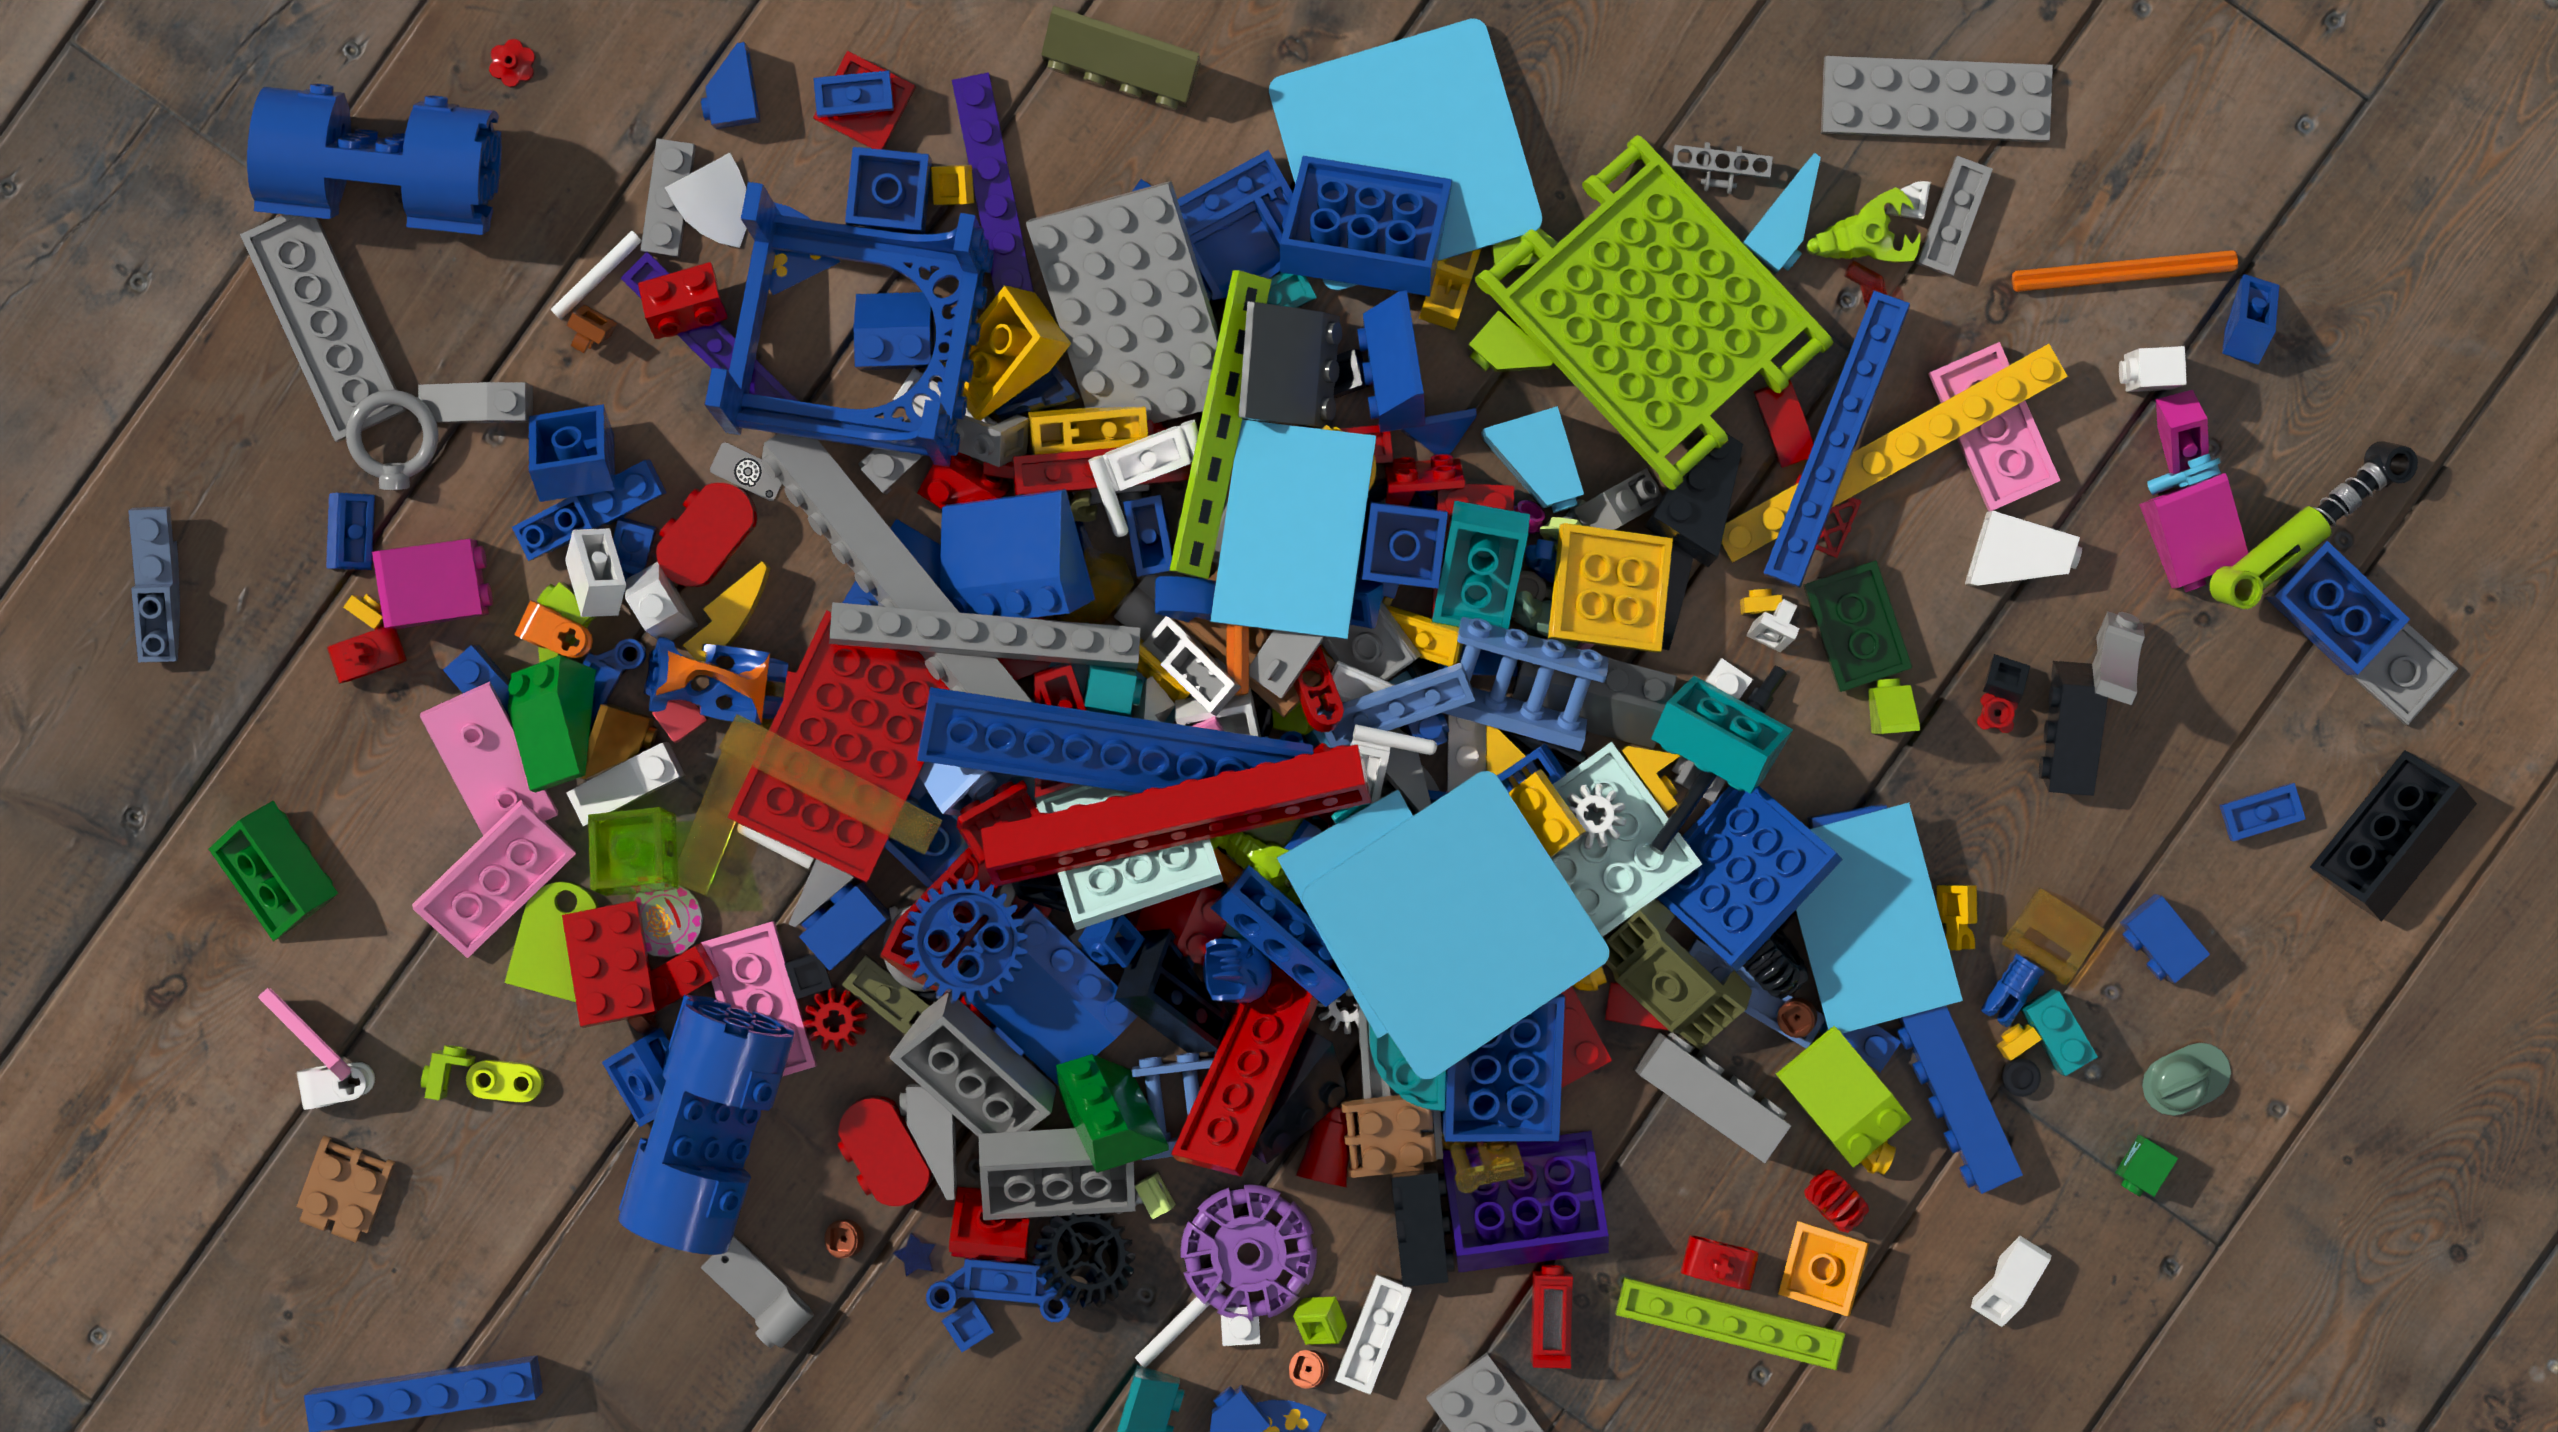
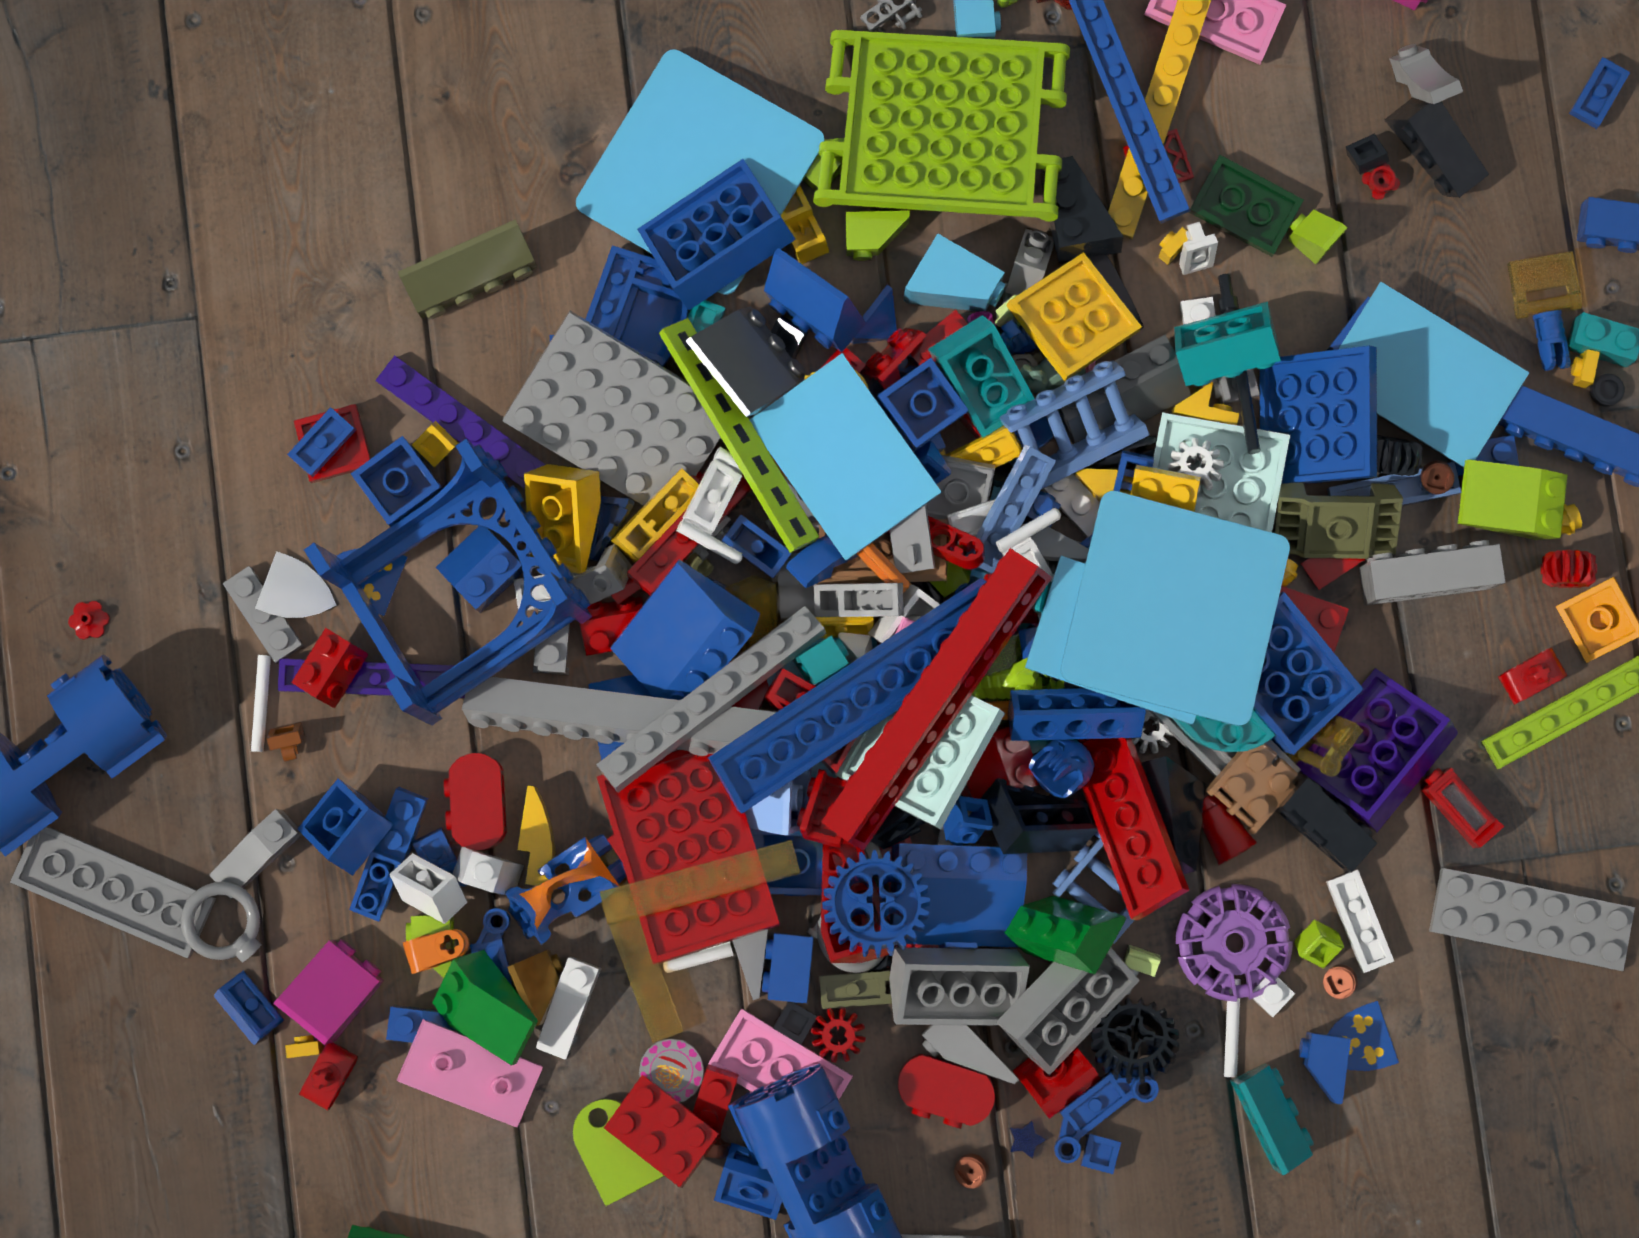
camera: 40 degrees left, 5 degrees down
(156, 584) = (153, 1155): sand blue slope -> none
(494, 879) = (539, 1145): bright pink plate -> none
(633, 851) = (612, 1044): clear neon green brick -> none
(679, 719) = (565, 933): coral slope -> none
(732, 92) = (244, 512): blue slope -> none
(744, 471) = (466, 740): light grey sticker -> none
(1785, 424) = (1087, 123): red slope -> none
(1957, 909) = (1472, 320): yellow plate -> none
(2020, 551) = (1301, 69): white slope -> none

